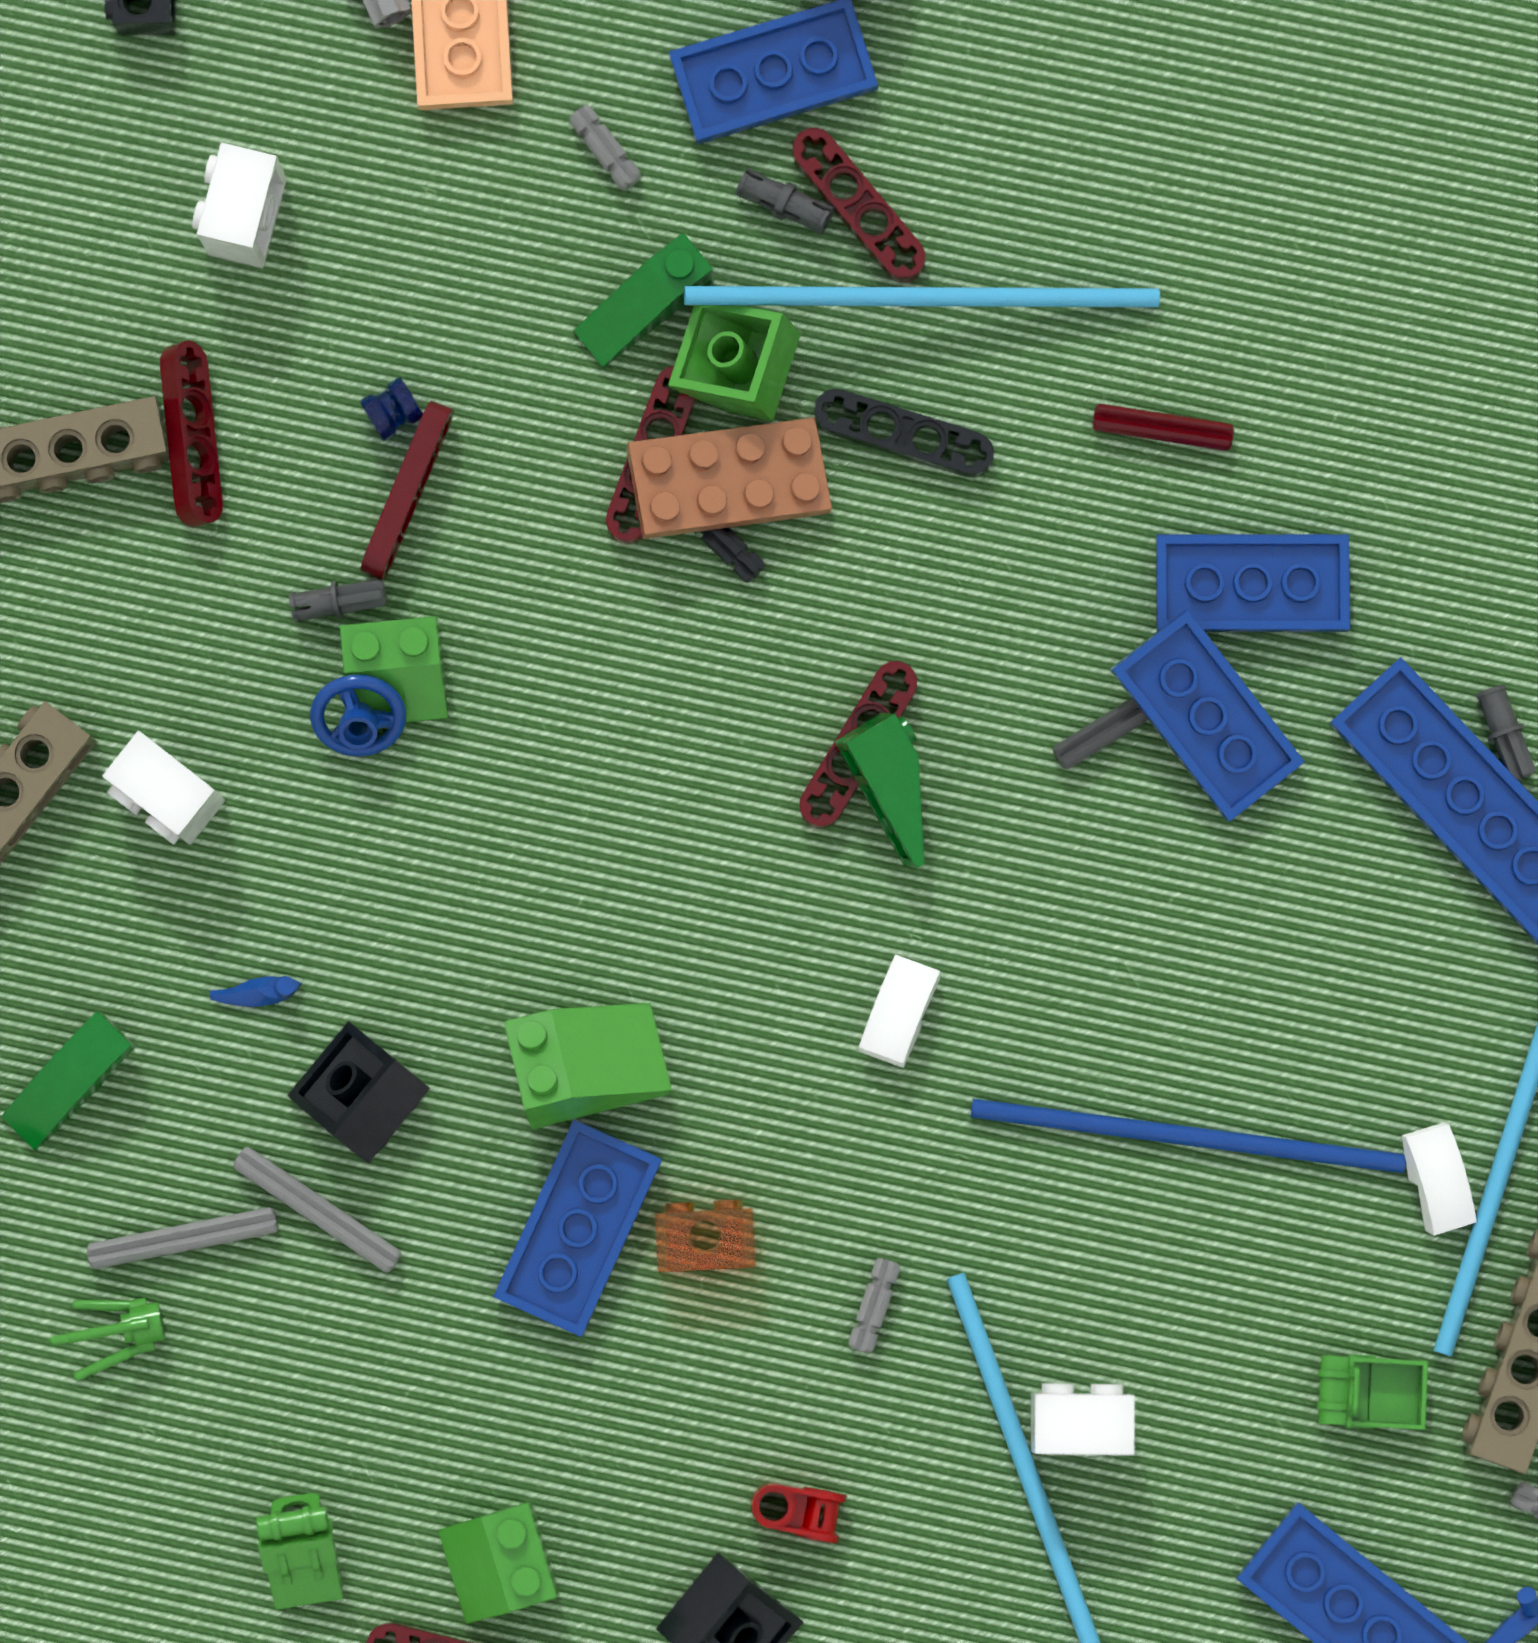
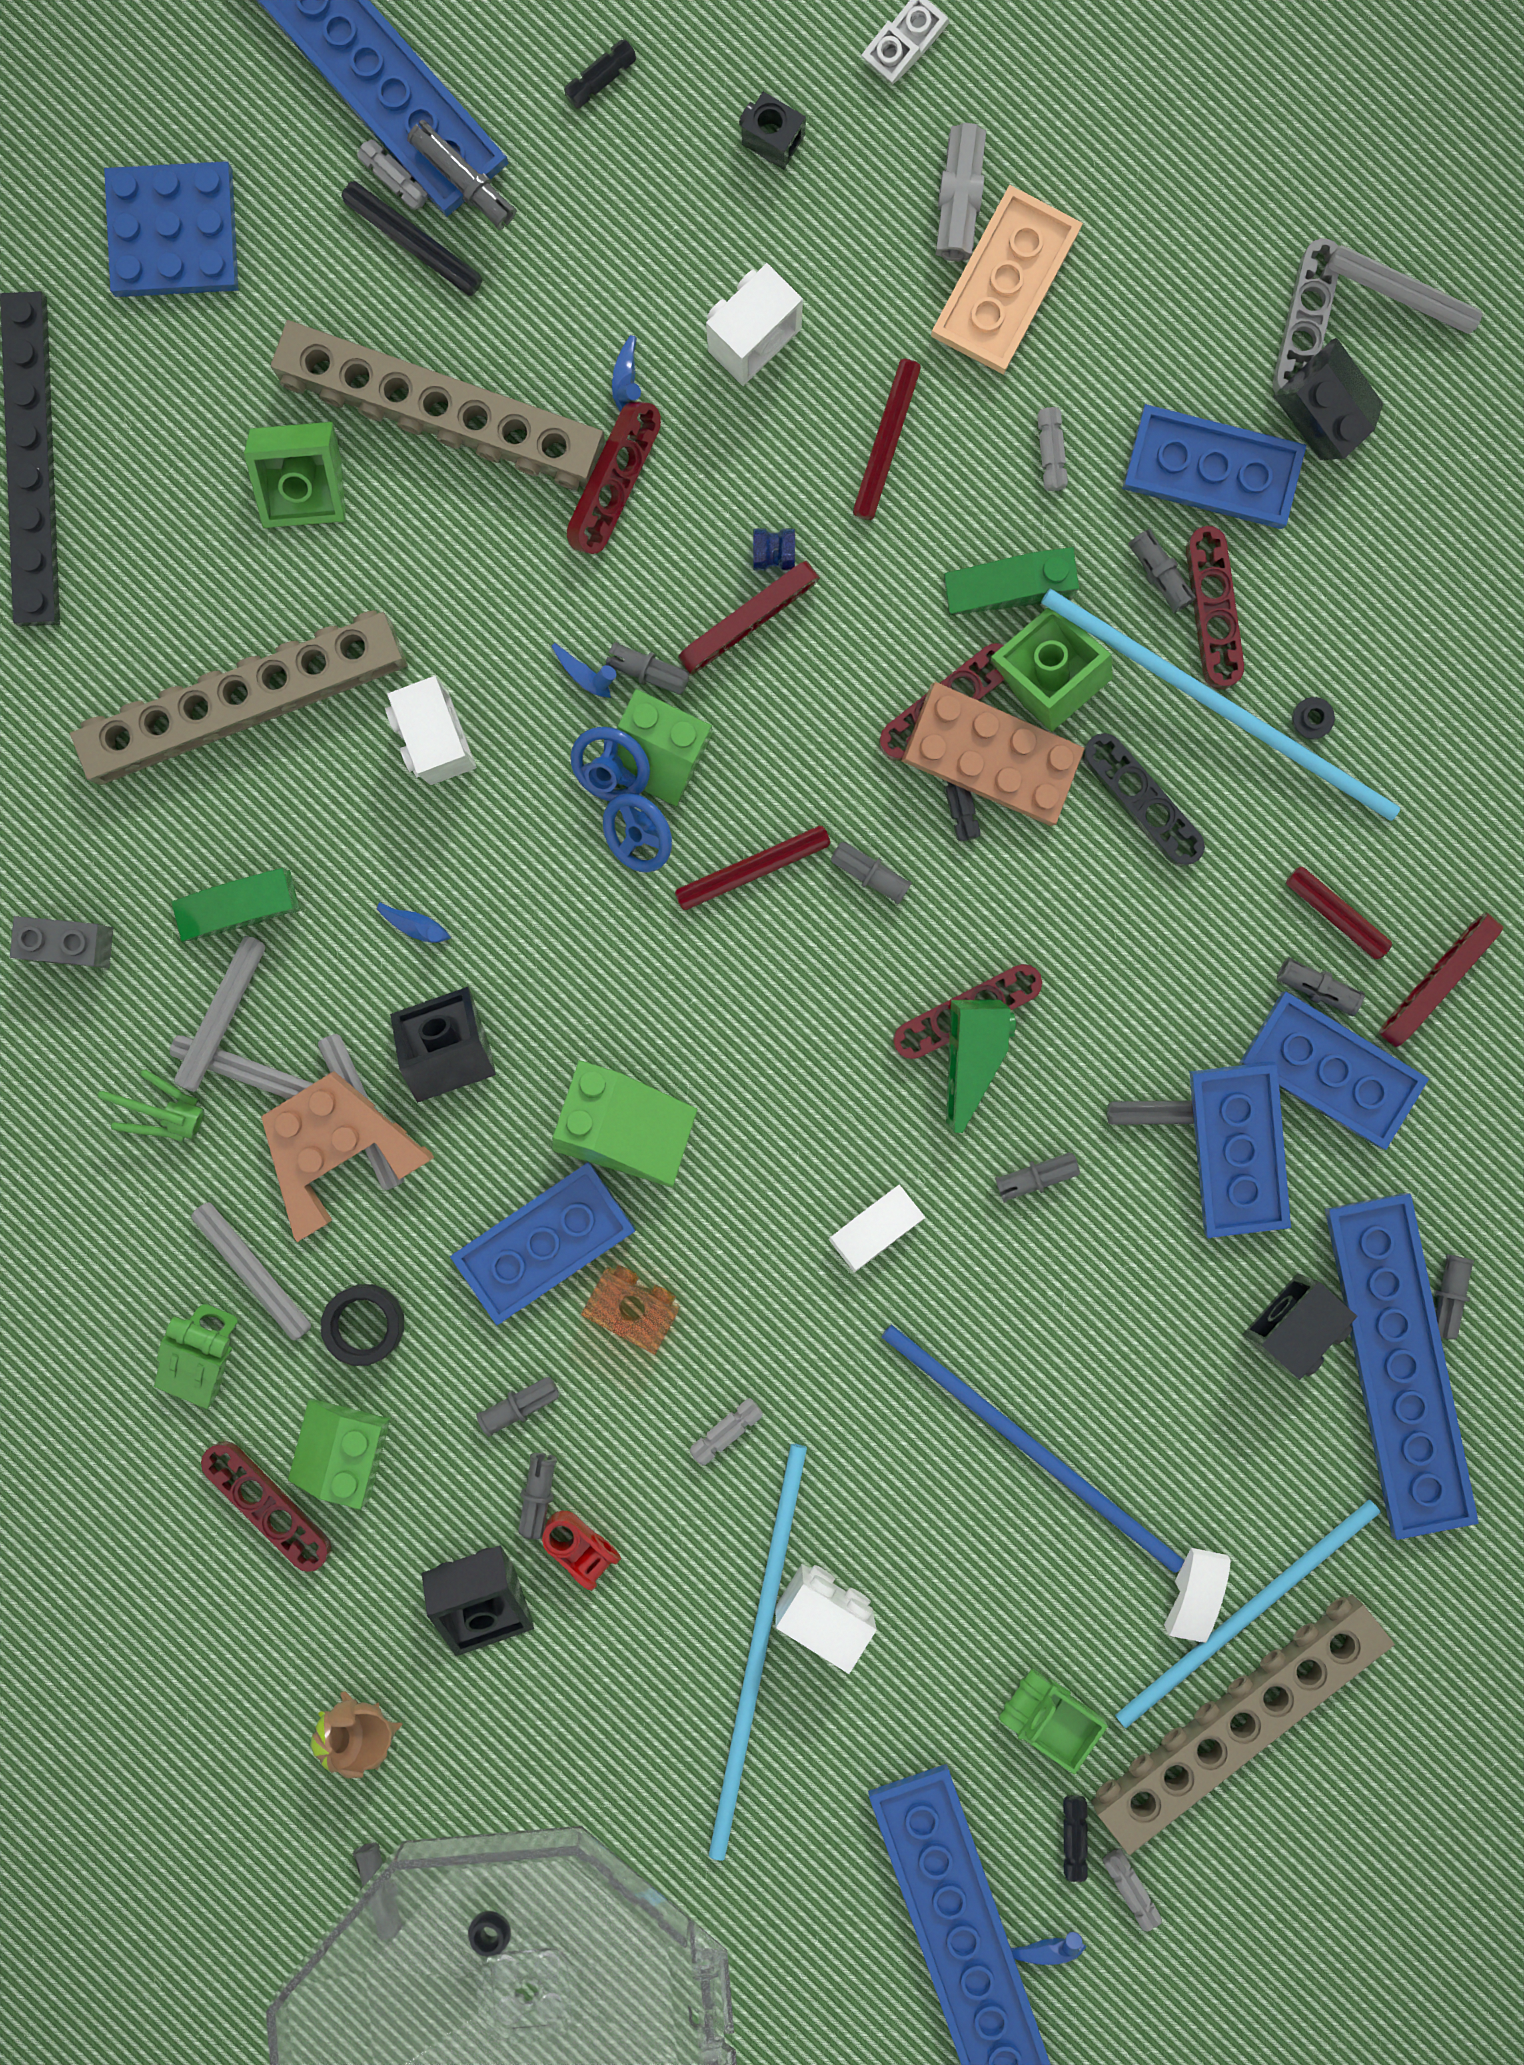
camera: 30 degrees right, 5 degrees up
(118, 1195) = (219, 1014): none -> light grey axle
(140, 330) = (623, 378): none -> blue bar
(279, 645) = (584, 676): none -> blue bar
(290, 1251) = (320, 1132): none -> nougat wing
(303, 1436) = (251, 1271): none -> light grey axle
(411, 1428) = (333, 1338): none -> black tyre
(427, 757) = (642, 827): none -> blue piece
(437, 235) = (886, 439): none -> dark red axle
(560, 732) = (752, 867): none -> dark red axle
(651, 1406) = (518, 1406): none -> dark grey axle
(678, 665) = (870, 872): none -> dark grey axle
(724, 1484) = (537, 1495): none -> dark grey axle
(1015, 267) = (1304, 726): none -> black plate
(1026, 863) = (1037, 1176): none -> dark grey axle
(1189, 509) = (1320, 986): none -> dark grey pin
(1301, 432) = (1440, 979): none -> dark red beam
(1370, 851) = (1300, 1326): none -> black brick
(1469, 1497) = (1075, 1838): none -> black axle

